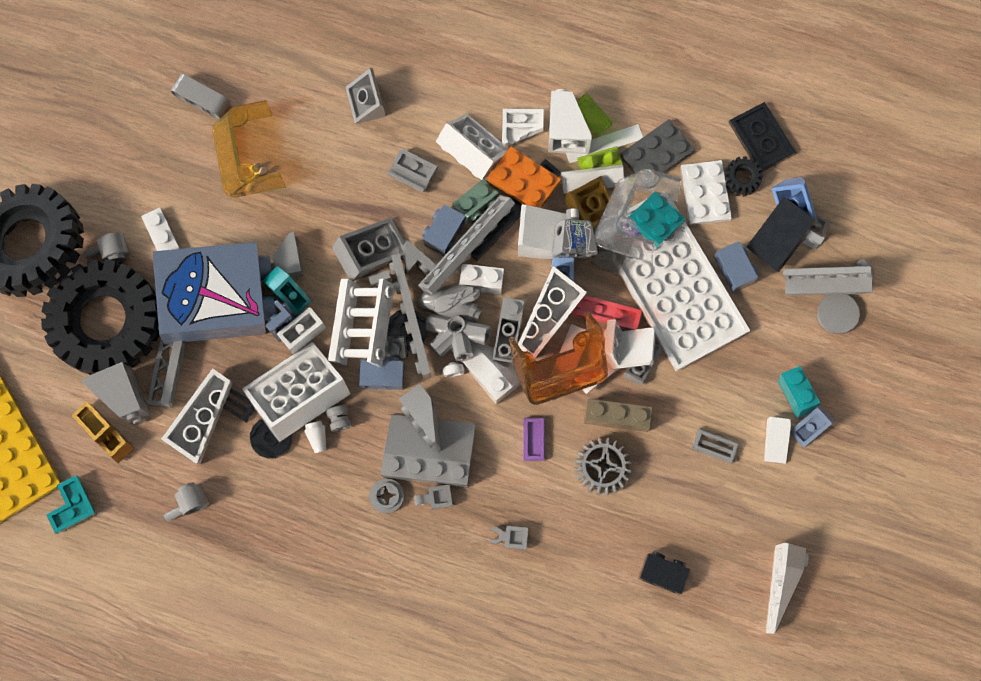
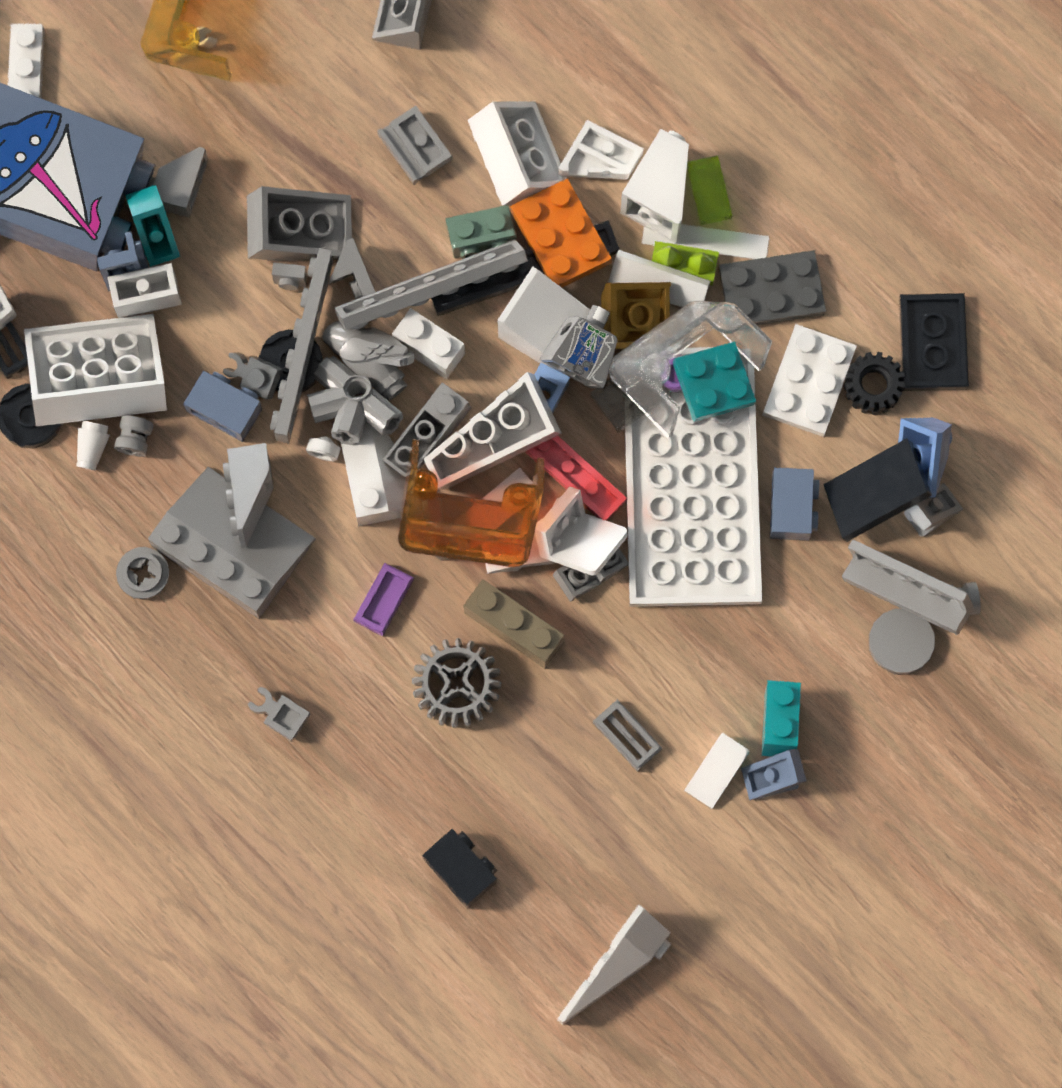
camera: 25 degrees right, 0 degrees up
(344, 320) = (211, 305): white fence -> none
(438, 497) = (210, 610): light grey plate -> none
(444, 229) = (414, 248): sand blue brick -> none

